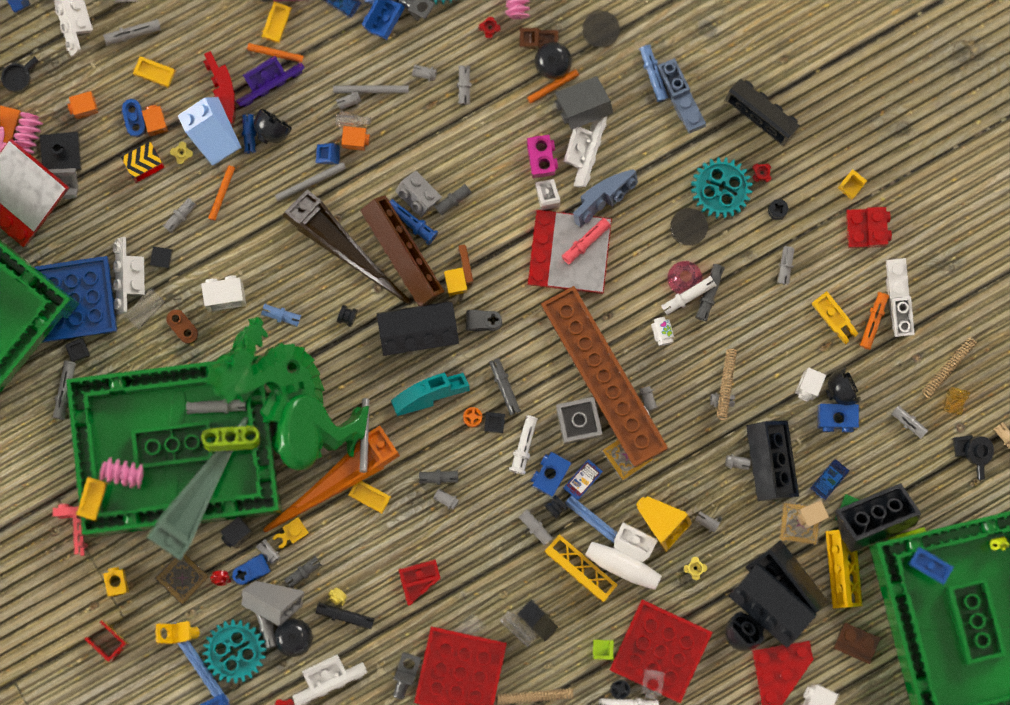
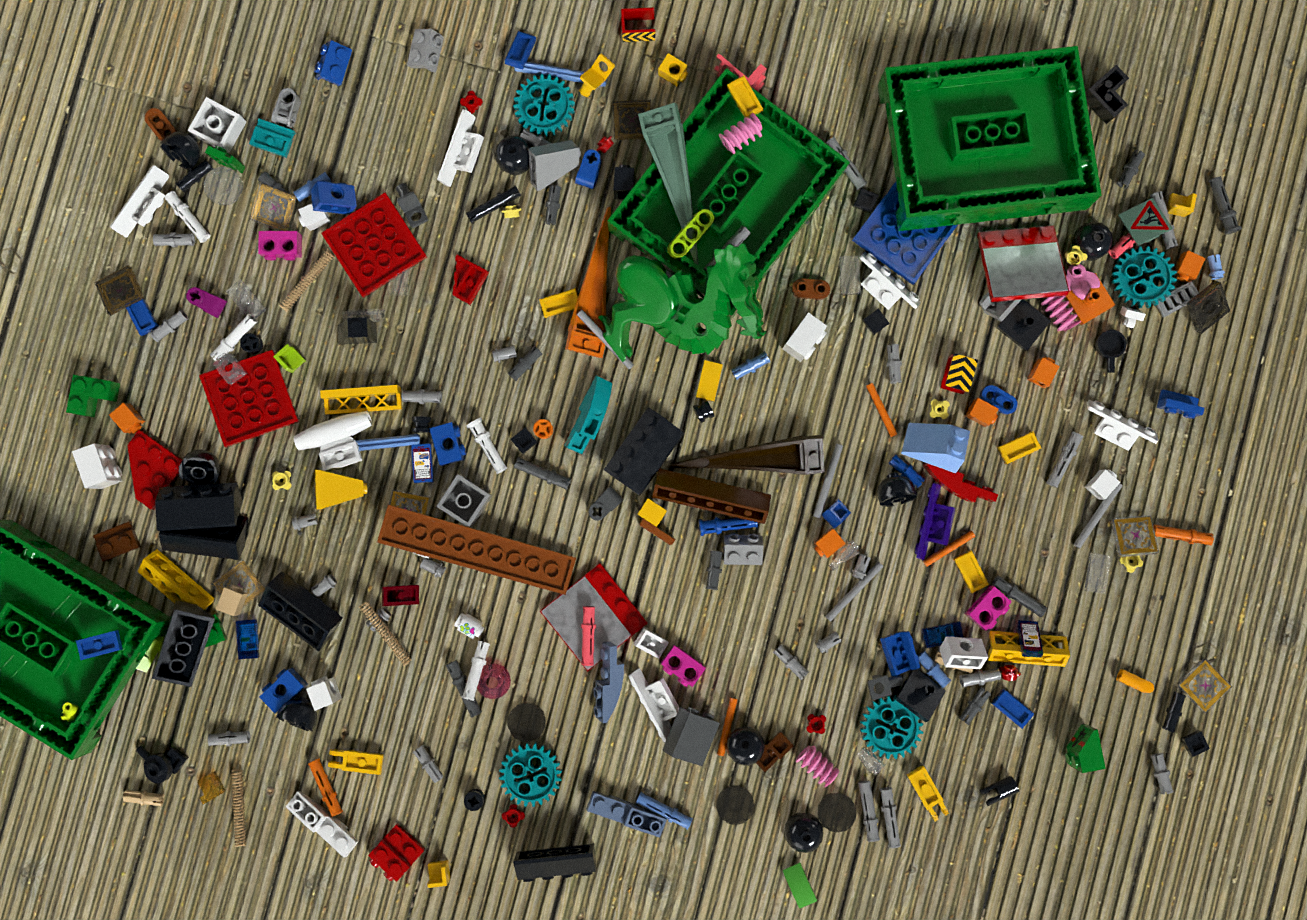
camera: 135 degrees right, 5 degrees up
(266, 549) = (588, 195): light grey pin -> none
(293, 531) = (588, 226): yellow plate -> none
(321, 334) = (709, 380): none -> yellow tile
(689, 399) = (400, 595): none -> dark red slope

